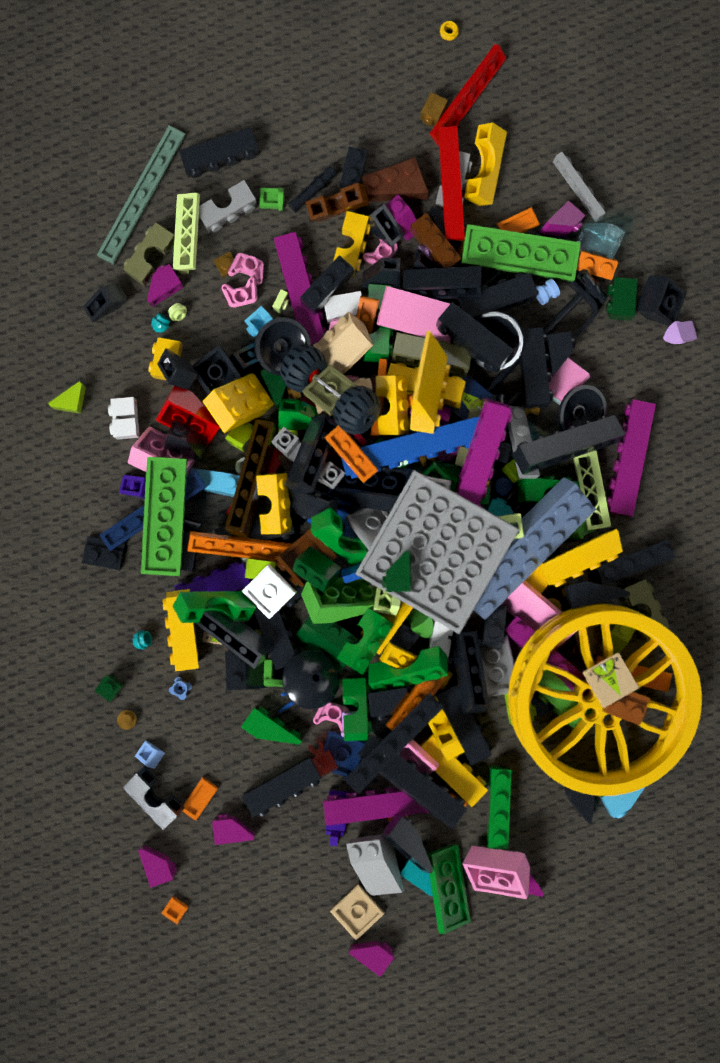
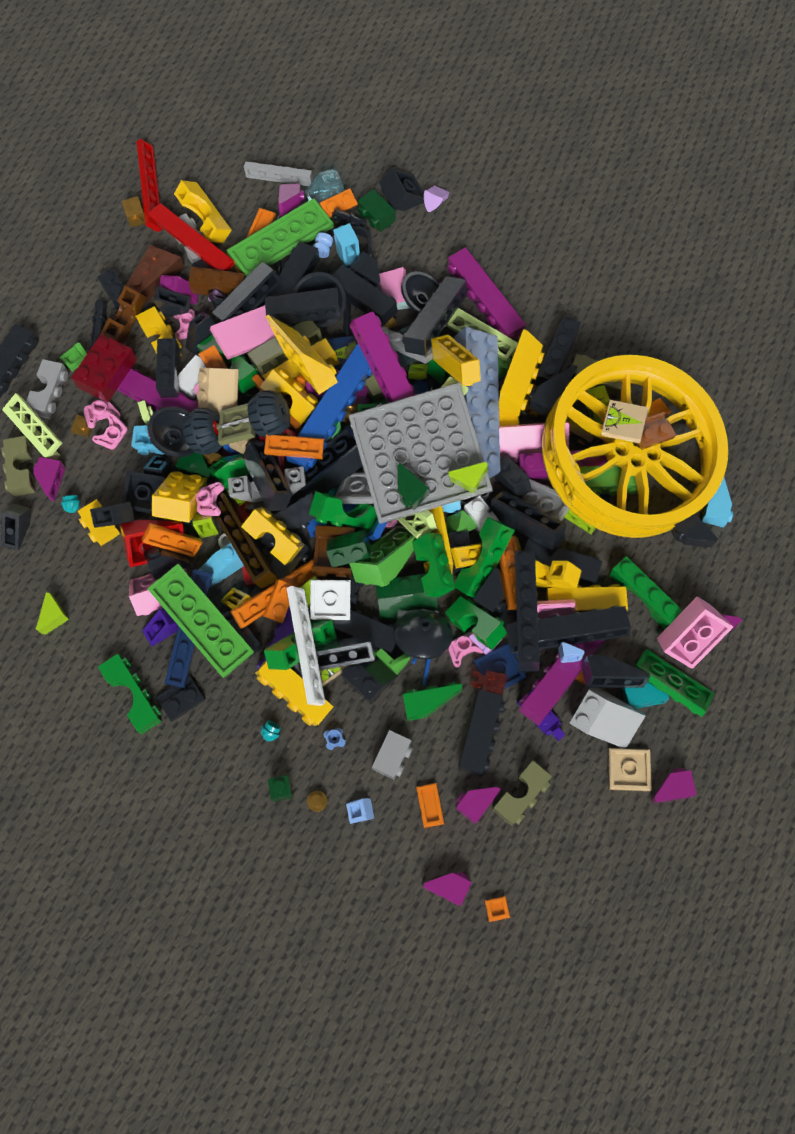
camera: 40 degrees left, 15 degrees down
(68, 539) = (142, 713): none -> green arch
(125, 418) = (107, 590): white piece -> none
(160, 810) = (378, 840): arch -> none
(177, 312) = (76, 485): yellowish green plate -> none
(201, 431) = (171, 540): none -> orange tile
(206, 741) = (392, 755): none -> light grey brick
(207, 510) = (244, 596): none -> yellow tile
(215, 613) = (305, 646): none -> white tile
(233, 556) = (278, 602): none -> orange plate
(250, 859) = (512, 808): none -> olive arch
(254, 427) = (207, 500): none -> bright pink piece
(280, 237) = (104, 368): none -> dark red brick
(393, 799) = (570, 653): none -> light blue slope
(448, 611) = (469, 477): none -> lime slope
(449, 25) = (98, 161): yellow plate -> none
(537, 506) = (456, 360): none -> yellow brick
(563, 313) = (346, 244): none -> medium azure brick

